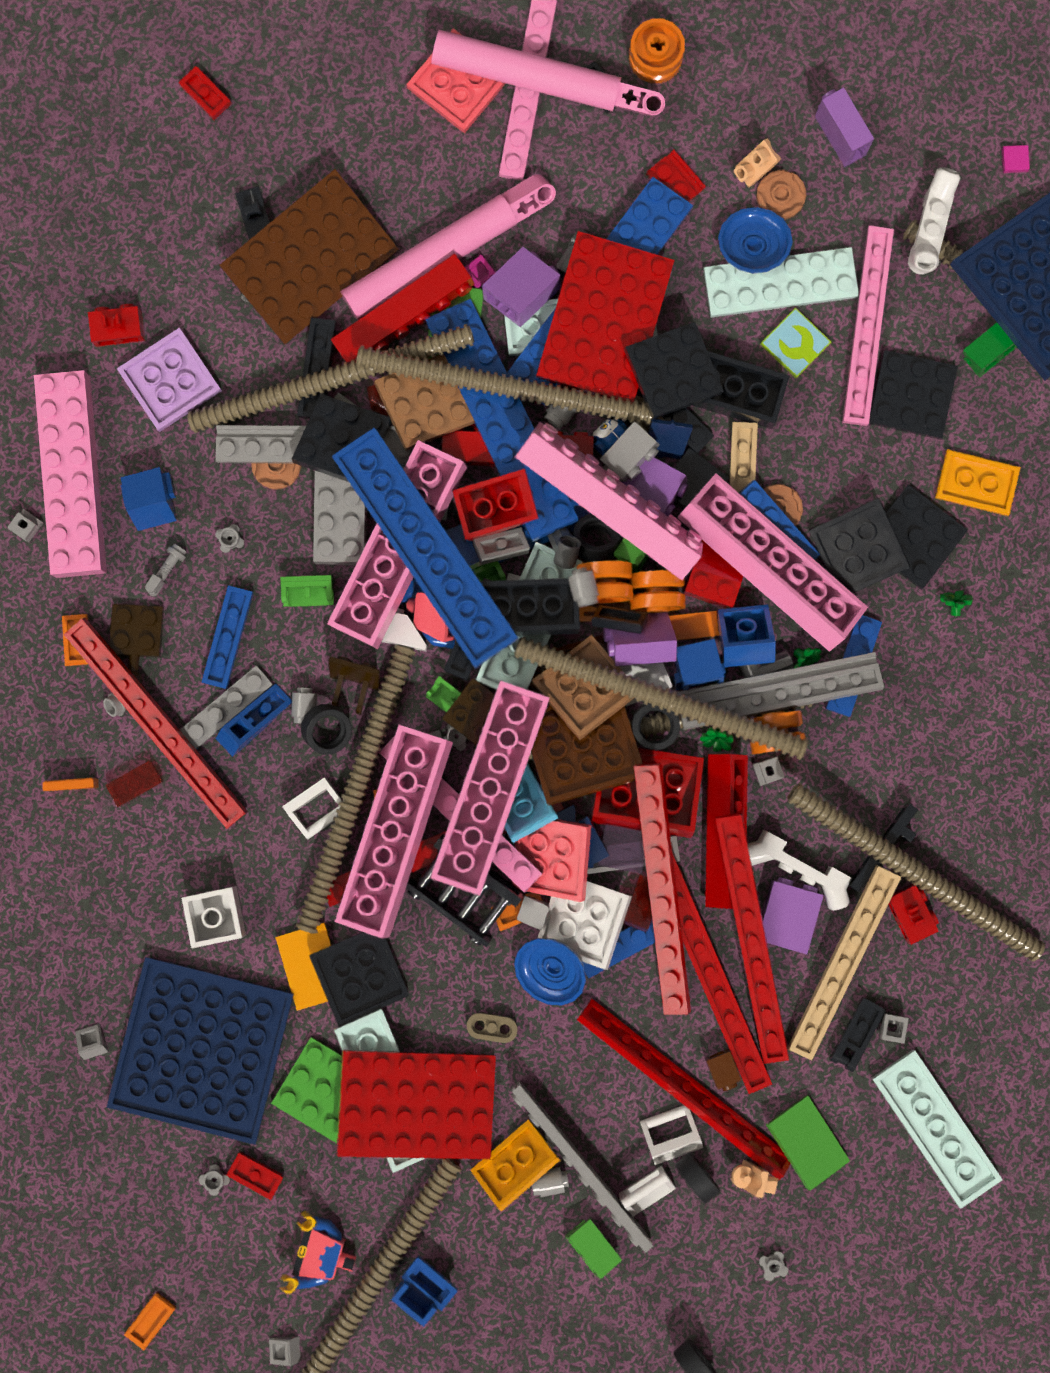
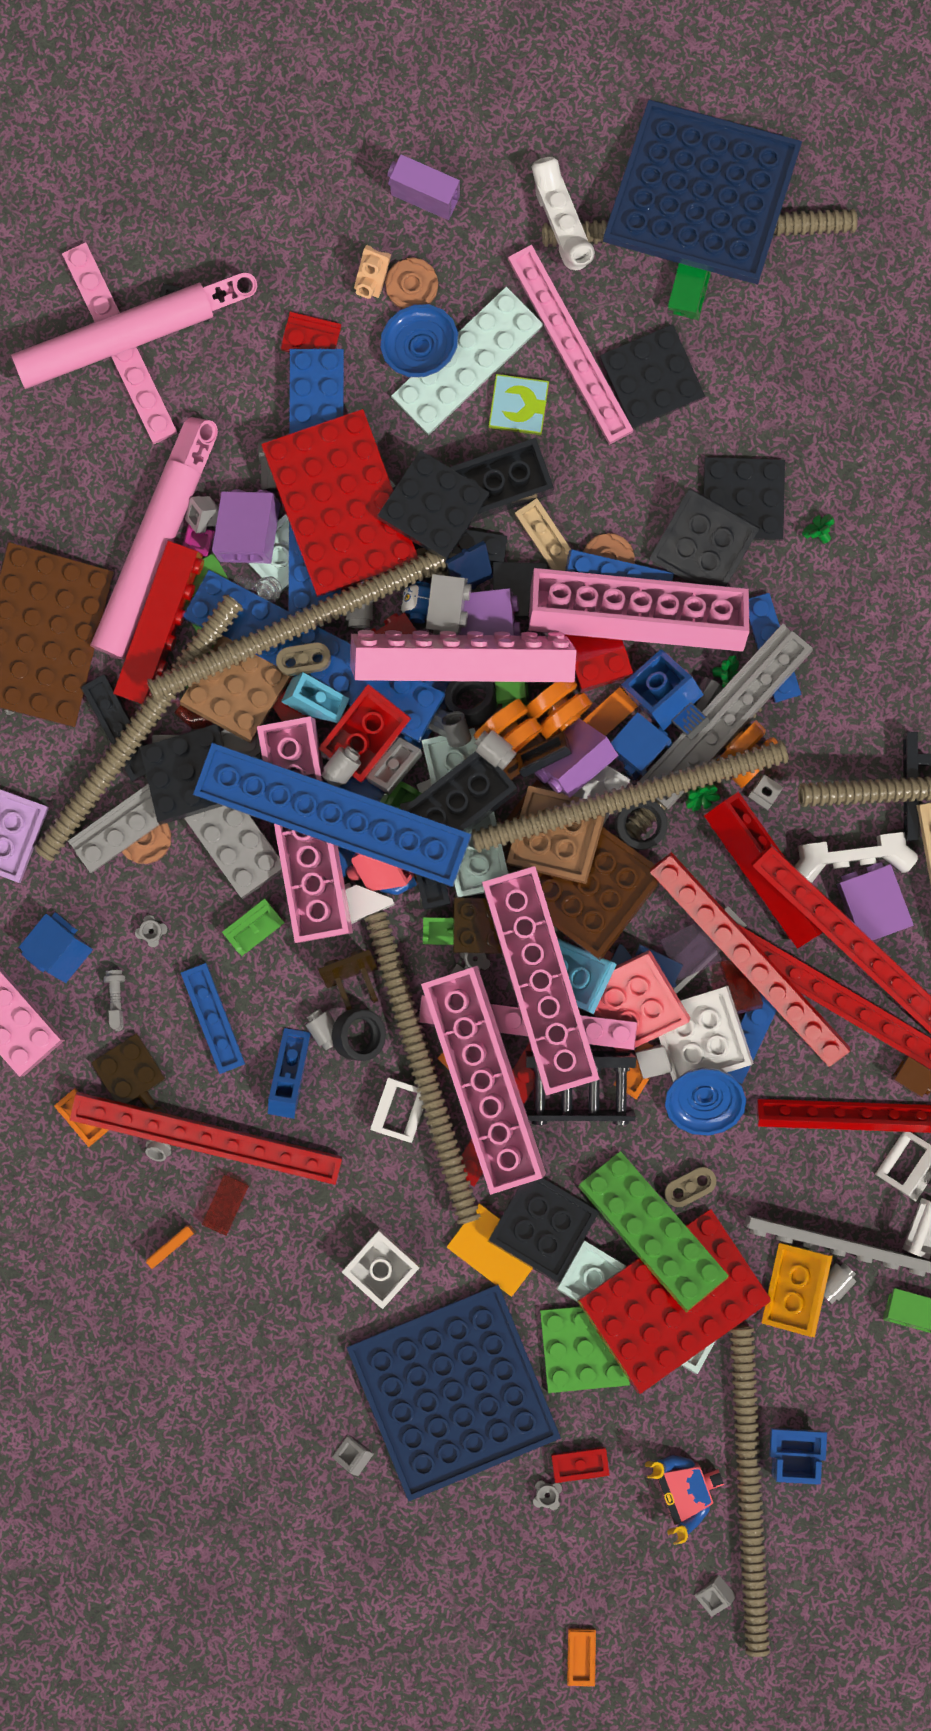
camera: 40 degrees left, 0 degrees up
(226, 707) = (256, 1080): light grey plate -> none
(438, 1041) = (653, 1231): none -> bright green plate
(453, 93) = (61, 401): coral plate -> none
(459, 516) = (341, 766): none -> light grey brick
(477, 451) = (314, 698): none -> medium azure slope
(492, 414) = (304, 659): none -> dark tan plate
(496, 252) = (201, 513): none -> light grey piece
(503, 343) = (266, 587): none -> clear plate
(656, 50) = (198, 233): orange wheel -> none
(682, 787) = (699, 854): red slope -> none
(750, 675) = (690, 721): none -> tile
(977, 482) = (763, 412): light orange tile -> none
(1015, 159) = (591, 107): dark pink tile -> none

